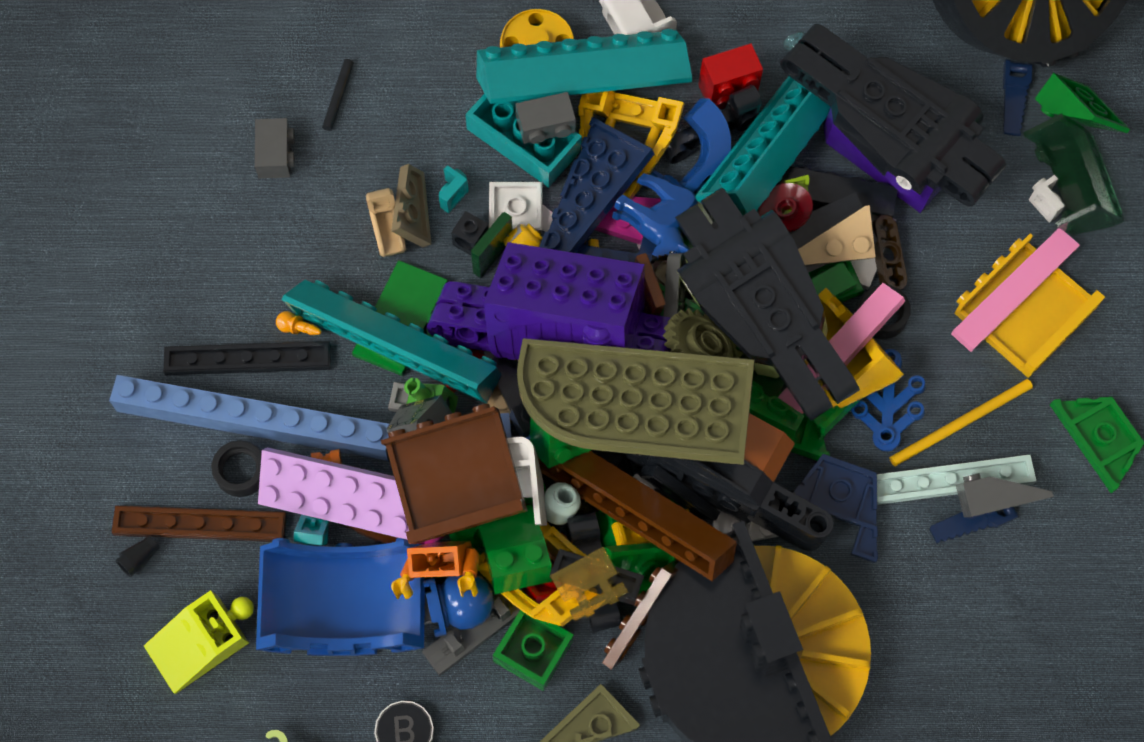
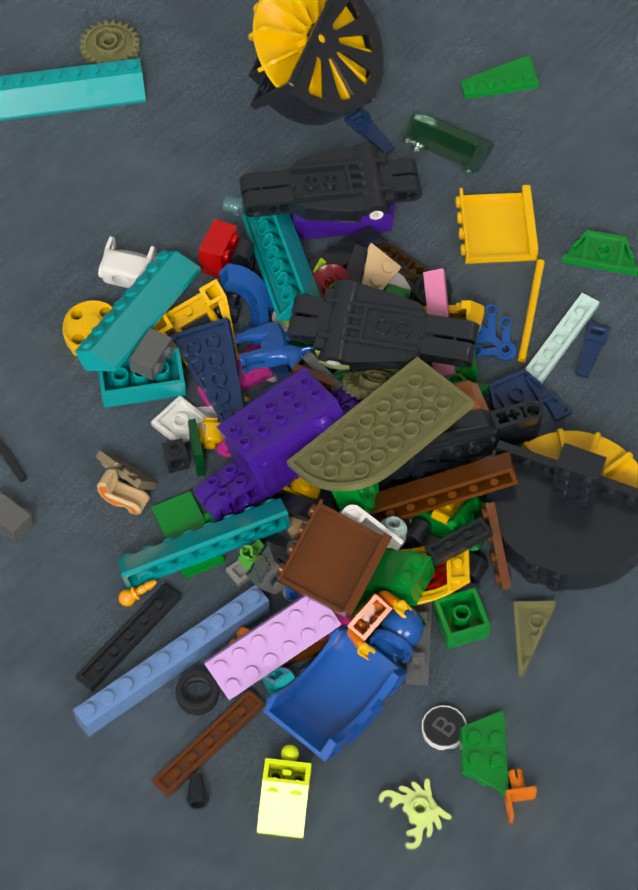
camera: 45 degrees left, 10 degrees down
(452, 193) = (135, 438): teal bracket -> none
(584, 575) = (455, 542): clear yellow plate -> none
(992, 494) = (588, 325): dark grey slope -> none
(1015, 289) = (483, 222): bright pink tile -> none
(1045, 200) = (446, 167): white bracket -> none
(1078, 103) = (401, 106): green slope -> none

